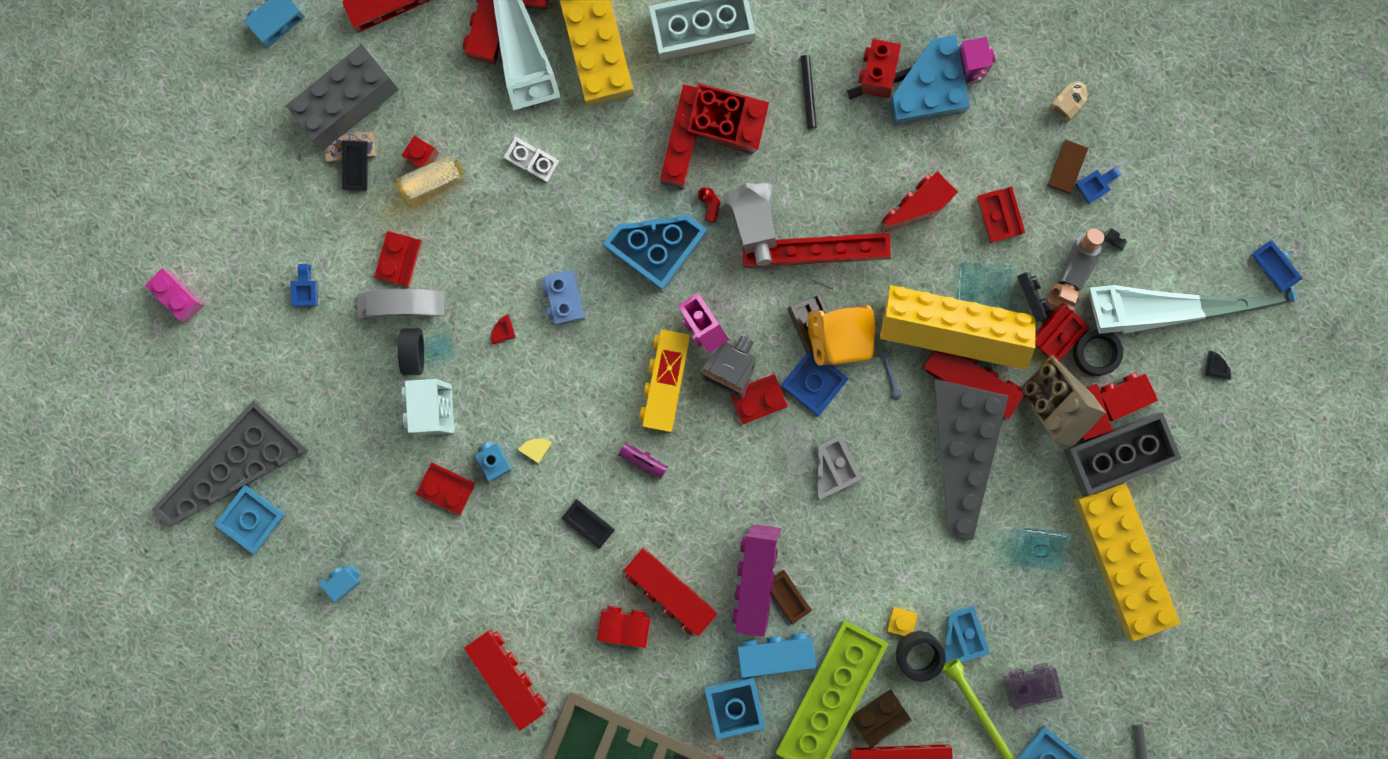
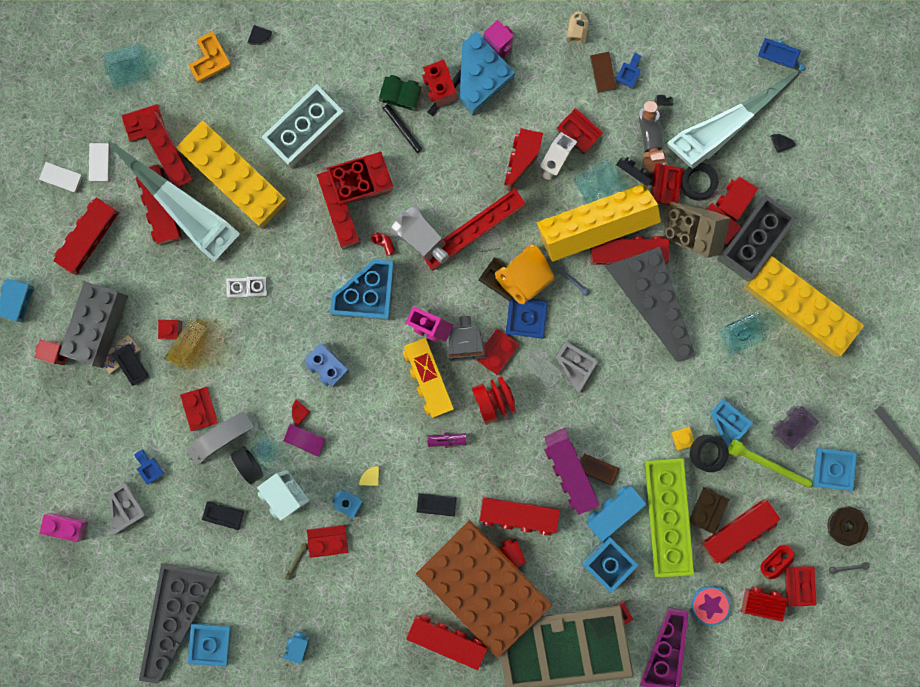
camera: 40 degrees left, 0 degrees up
(251, 316) = (124, 508): none -> light grey wing
(276, 98) = (49, 352): none -> brick
(351, 390) = (223, 515): none -> black tile
(415, 479) = (303, 547): none -> olive hinge
(490, 363) = (304, 439): none -> magenta slope
(581, 647) = (484, 589): none -> dark orange plate
(721, 449) = (494, 400): none -> red wheel
(830, 52) = (400, 93): none -> dark green brick
(959, 226) = (557, 155): none -> white torso

